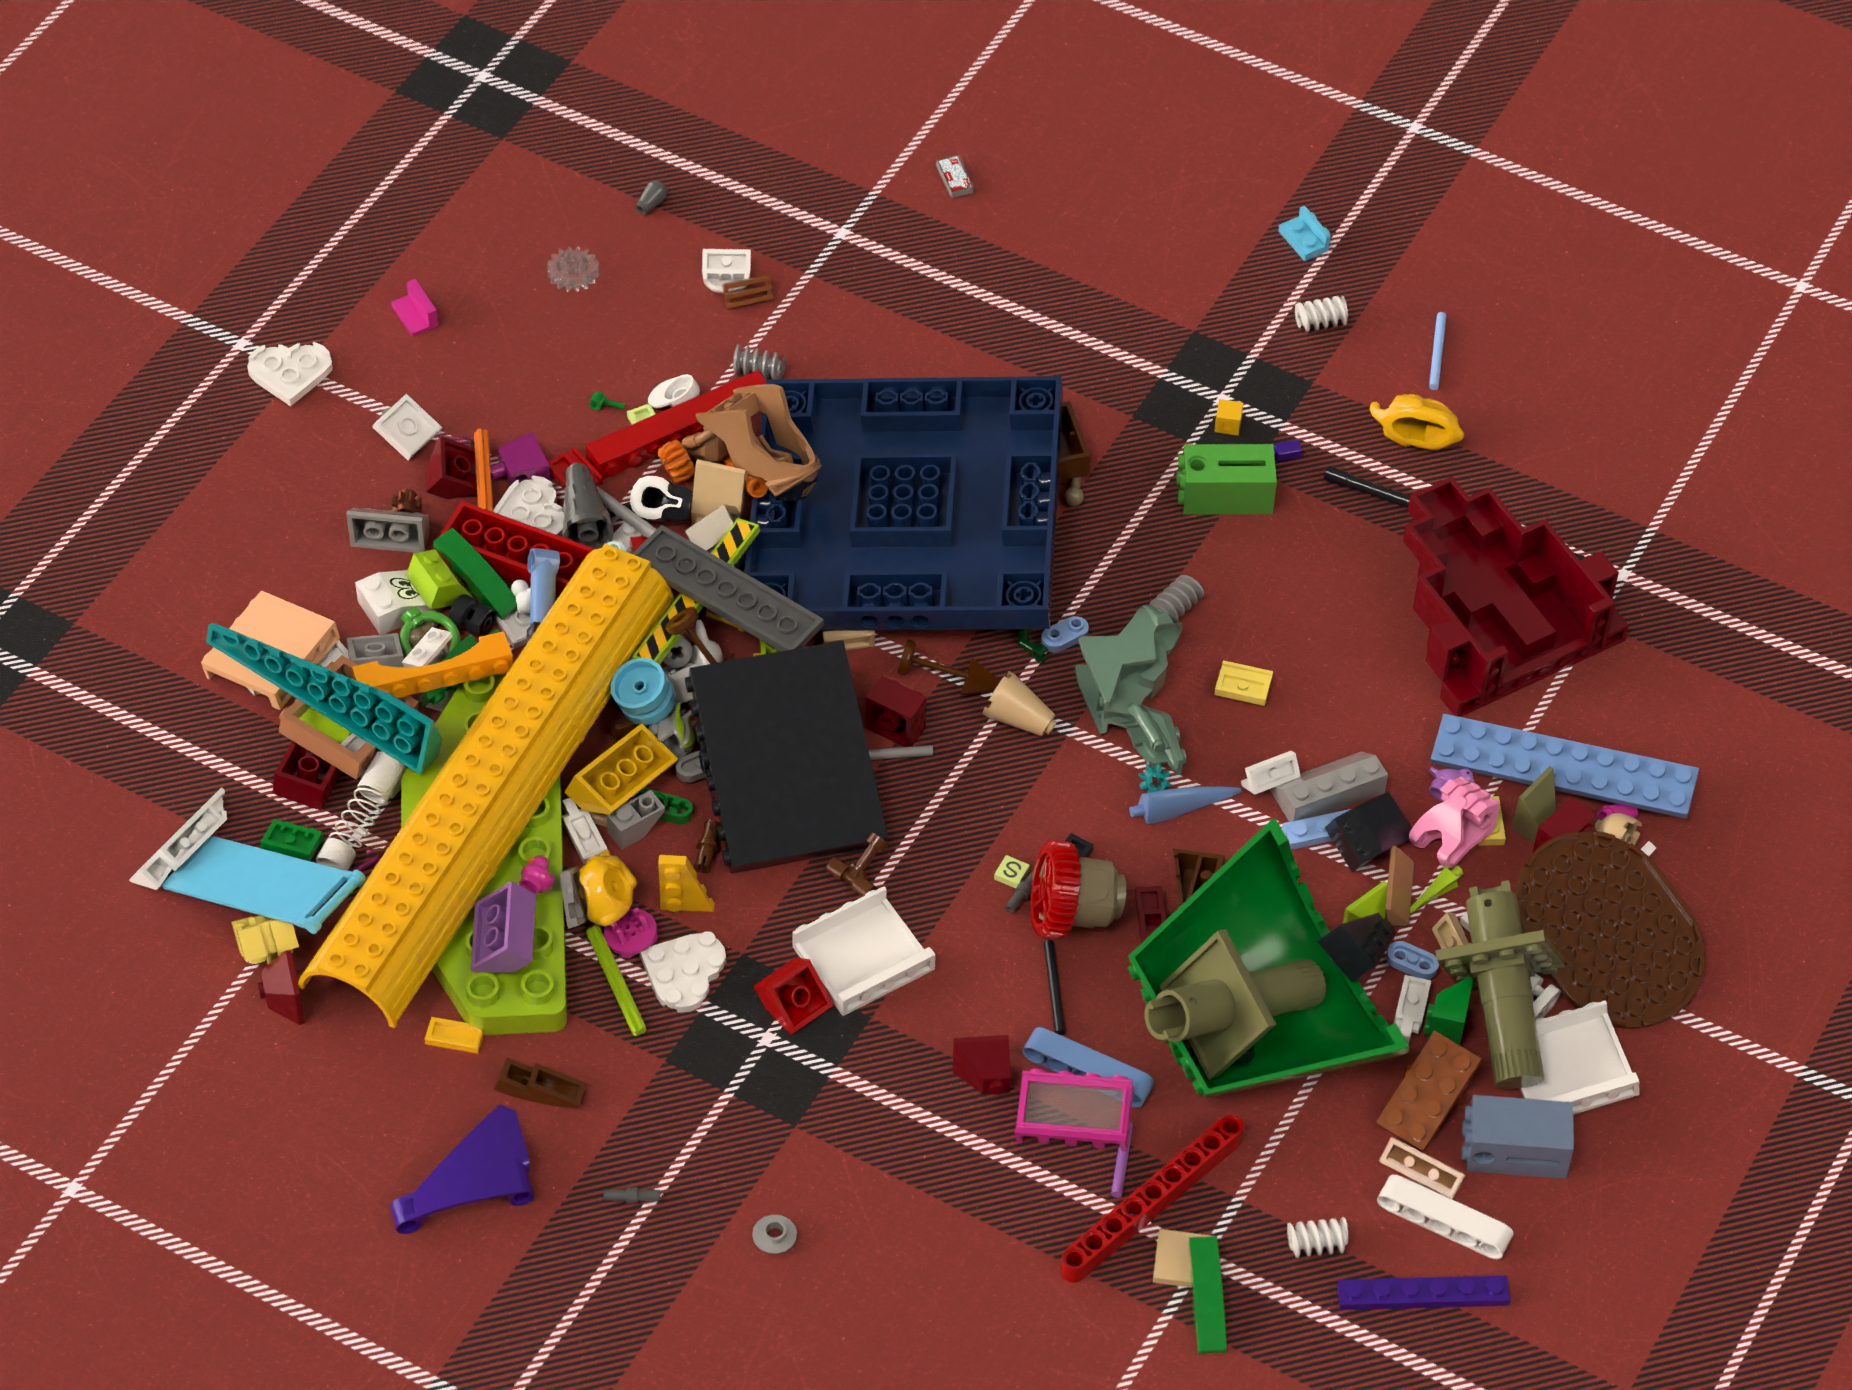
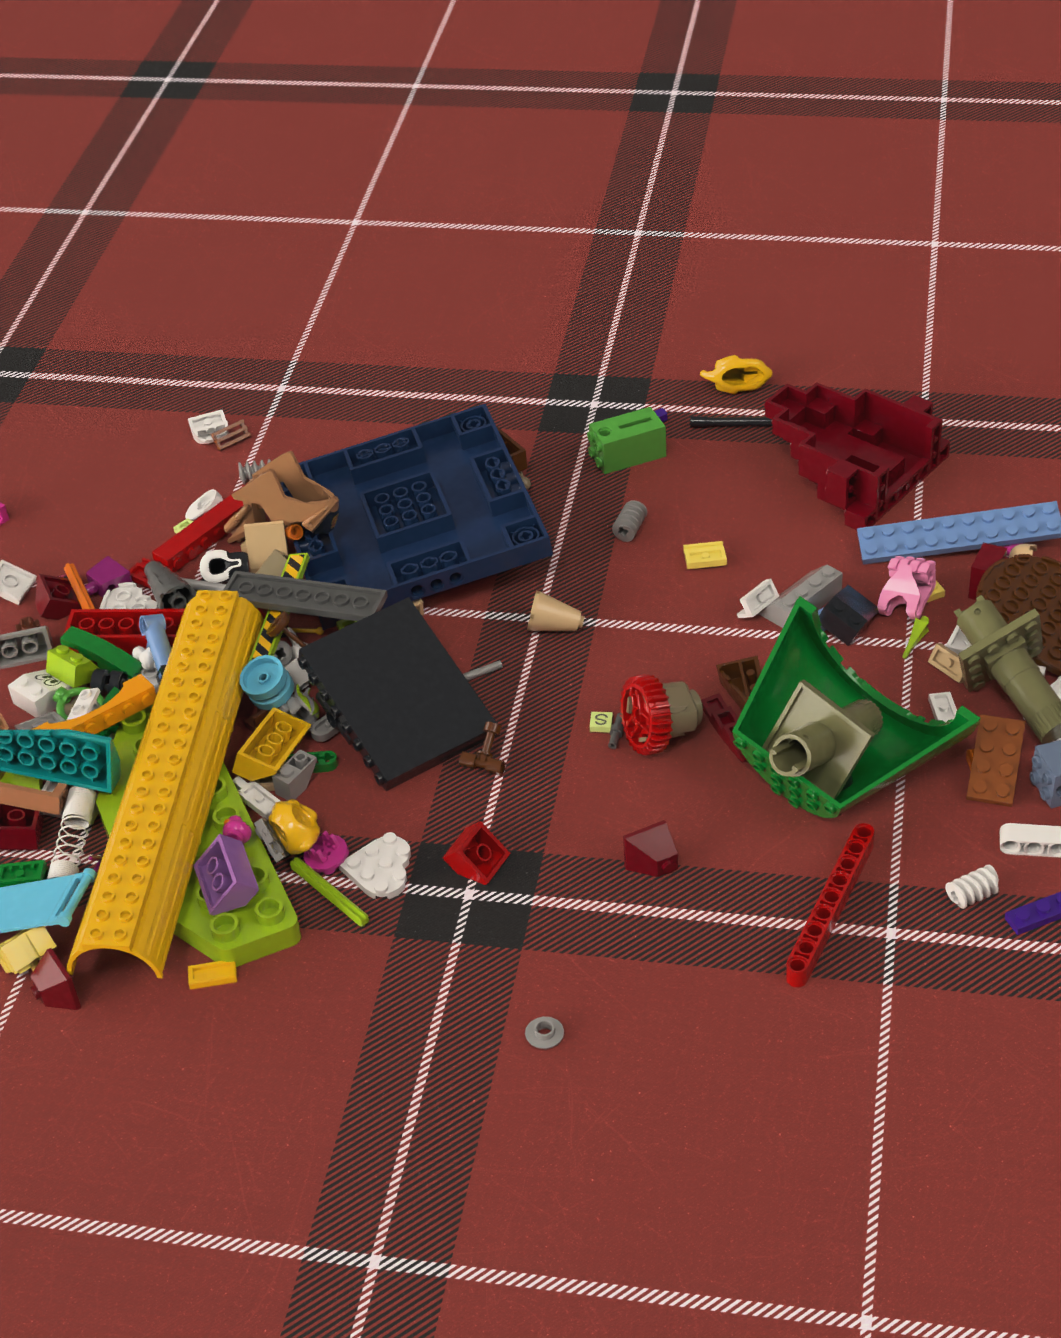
camera: 15 degrees left, 10 degrees down
(481, 1167) = (276, 1062): dark purple panel -> none
(539, 1084) = (299, 986): reddish brown slope -> none
(573, 268) = (97, 457): clear gear -> none
(599, 399) = (149, 526): green hand -> none
(631, 1195) = (412, 1043): dark grey bar -> none
(653, 194) = (137, 402): dark grey cone -> none
(676, 461) = (224, 540): orange gear -> none
(680, 886) = (353, 805): yellow wing -> none
(706, 846) = (359, 777): reddish brown pin -> none
(862, 951) = (516, 808): white panel -> none
(895, 712) = (465, 643): dark red brick -> none
(954, 176) = (346, 336): tile -> none
(976, 679) = (509, 610): reddish brown piece -> none
(1036, 651) = (528, 571): dark green arm -> none
(1054, 987) = (675, 788): black bar -> none
(1063, 1054) = (730, 830): medium blue beam -> none
(1067, 634) = (560, 565): light blue plate -> none
(1075, 1108) = (738, 858): window -> none
(1120, 1168) = (791, 886): medium lavender bar -> none
(1126, 672) = (624, 576): sand green piece -> none
(1161, 778) = (680, 630): teal gear -> none
(1171, 803) = (697, 640): medium blue piece -> none
(1173, 1258) = (878, 939): tan tile -> none
(1207, 1295) = (914, 956): green slope -> none
(1228, 417) = (606, 408): yellow piece -> none
(1306, 235) = (601, 301): medium azure bracket -> none
(1321, 312) = (636, 337): white piece -> none
(1358, 944) = (889, 679): black wedge -> none
(1368, 904) = (876, 663): lime slope -> none
(1399, 888) = (889, 643): medium nougat slope -> none
(1413, 960) = (927, 684): light blue plate -> none
(1422, 1168) = (1002, 813): slope -> none
(1437, 351) = (723, 336): light blue bar -> none
(1443, 776) = (880, 570): medium lavender animal -> none
(1449, 1011) = (981, 698): green slope -> none
(1535, 805) = (958, 563): olive slope -> none

